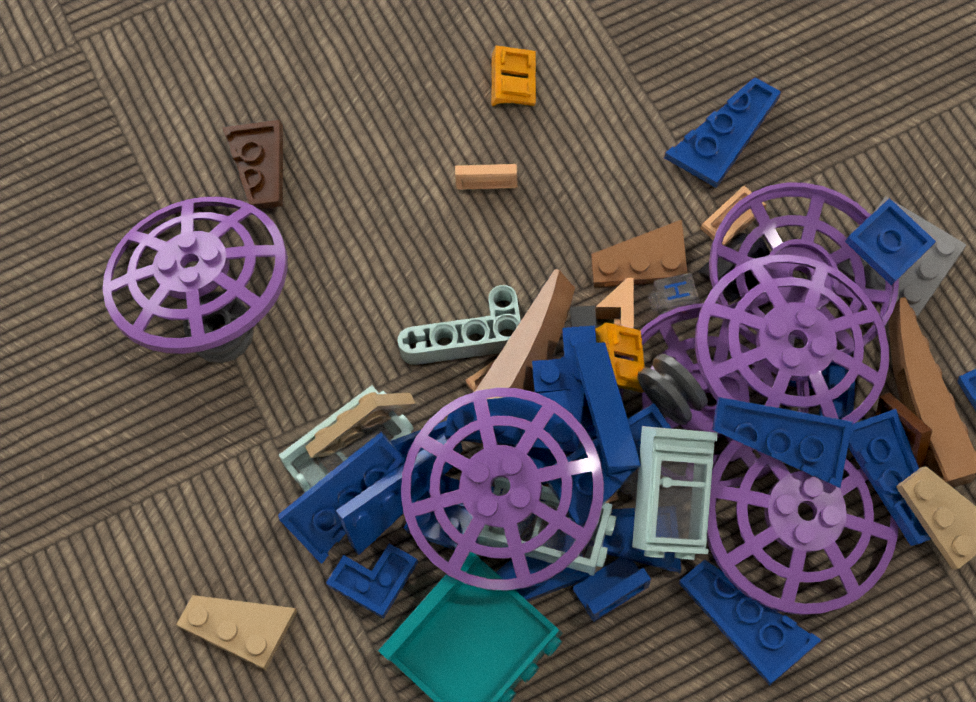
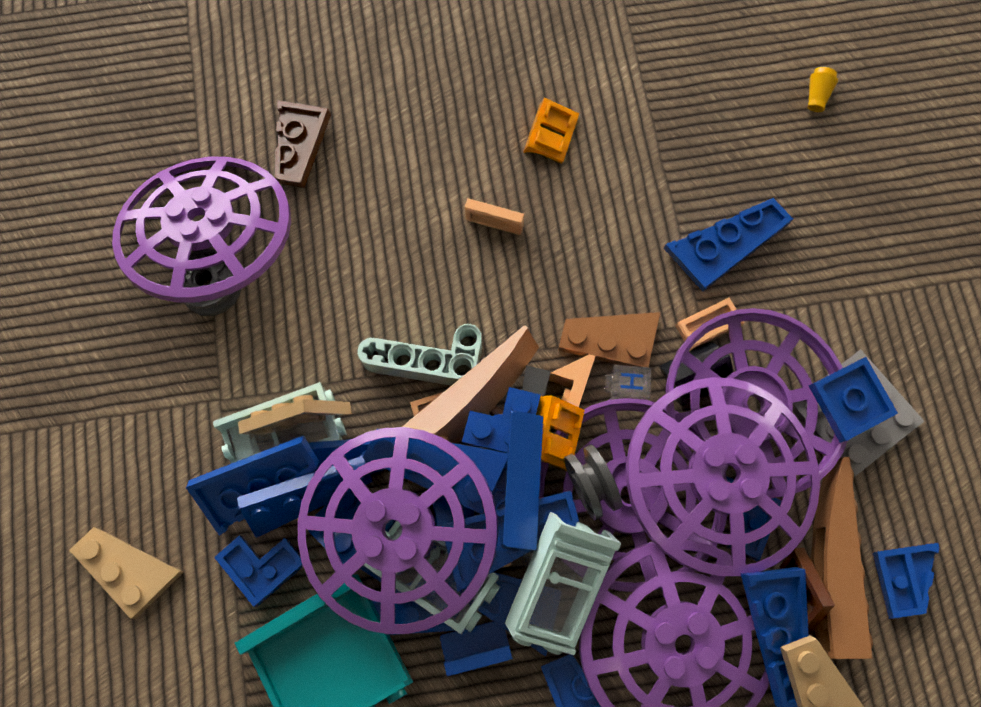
camera: 15 degrees right, 5 degrees up
(794, 437) = (698, 573): blue wing -> none

